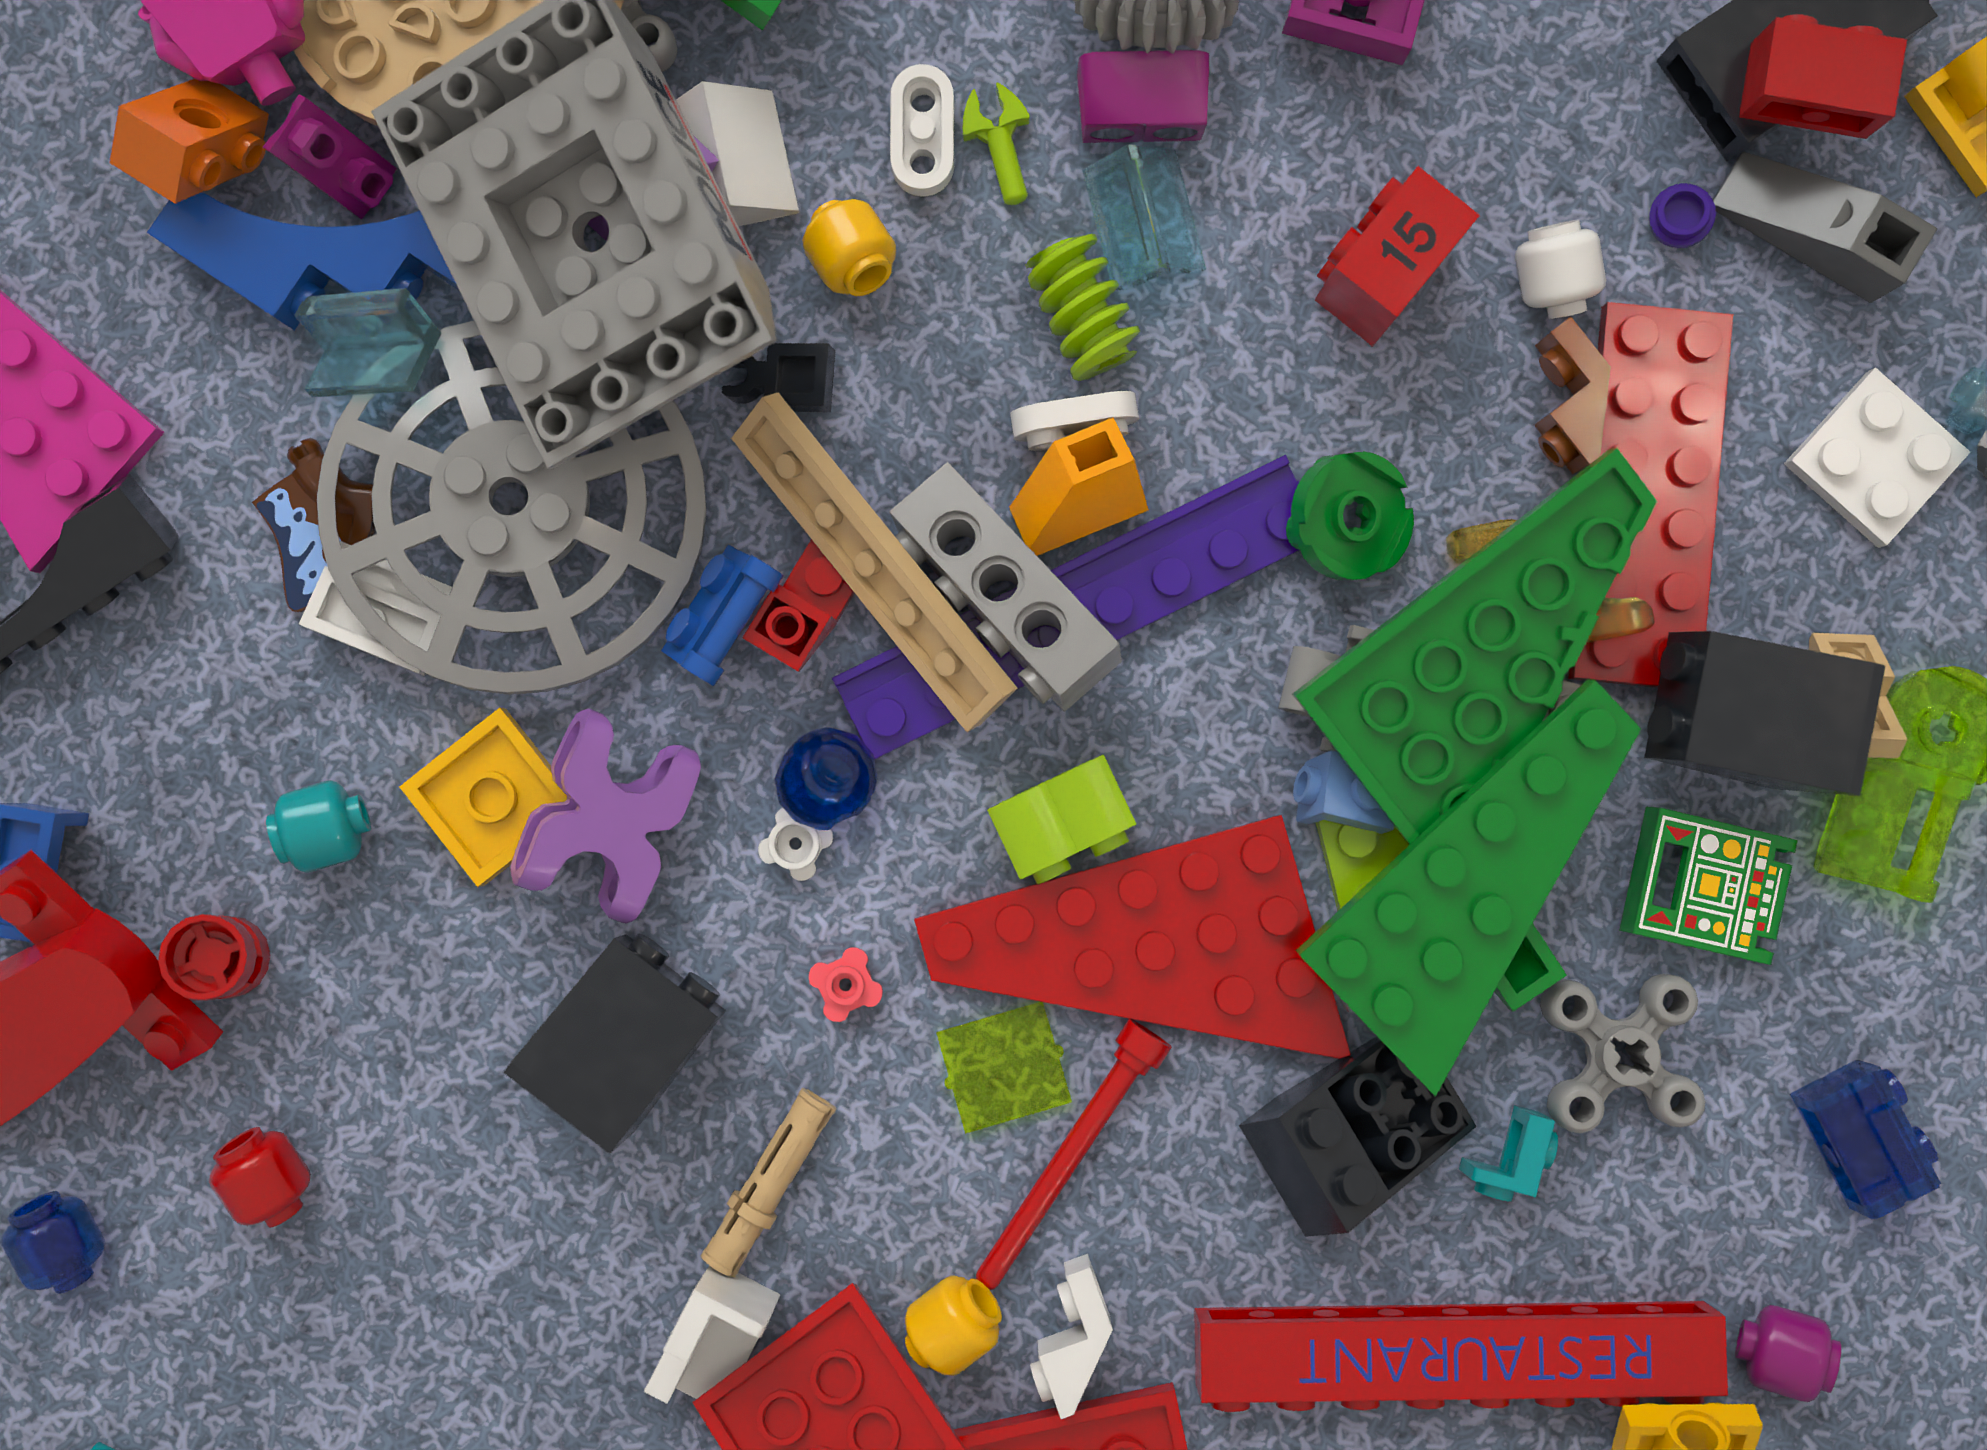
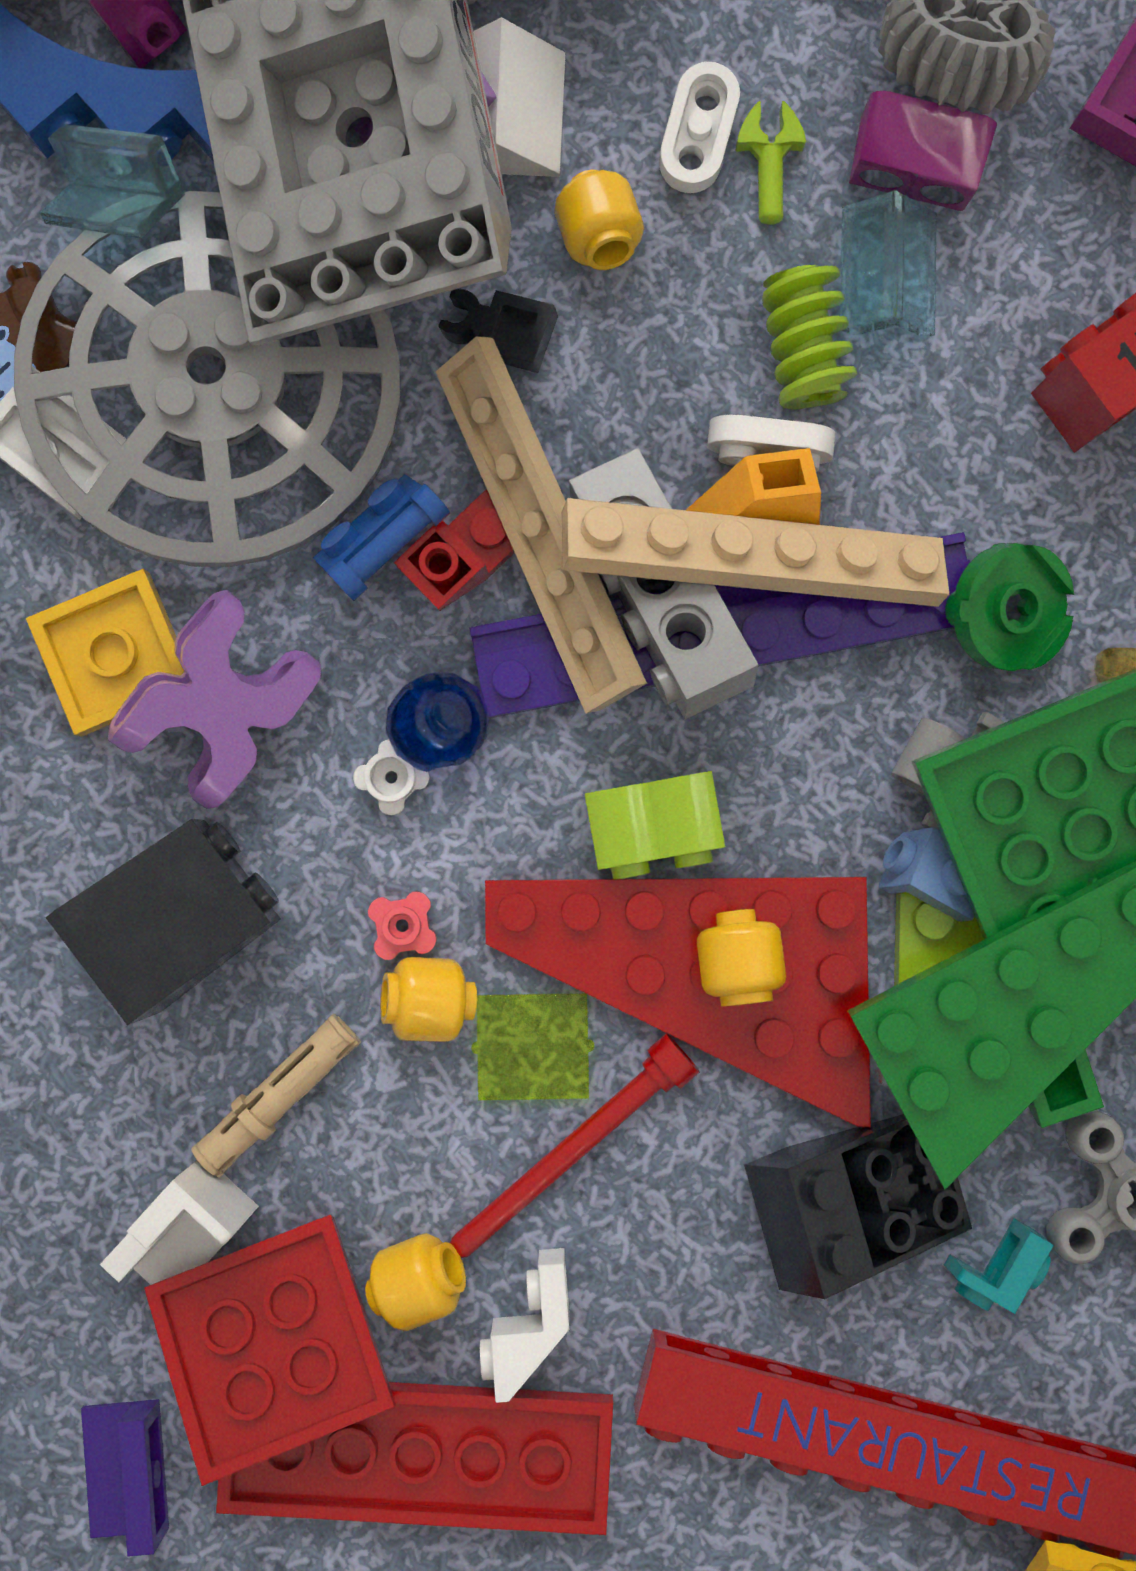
camera: 10 degrees right, 0 degrees up
(889, 1049) = (427, 999): none -> yellow head
(1085, 535) = (752, 553): none -> tan plate
(1180, 928) = (741, 959): none -> yellow head

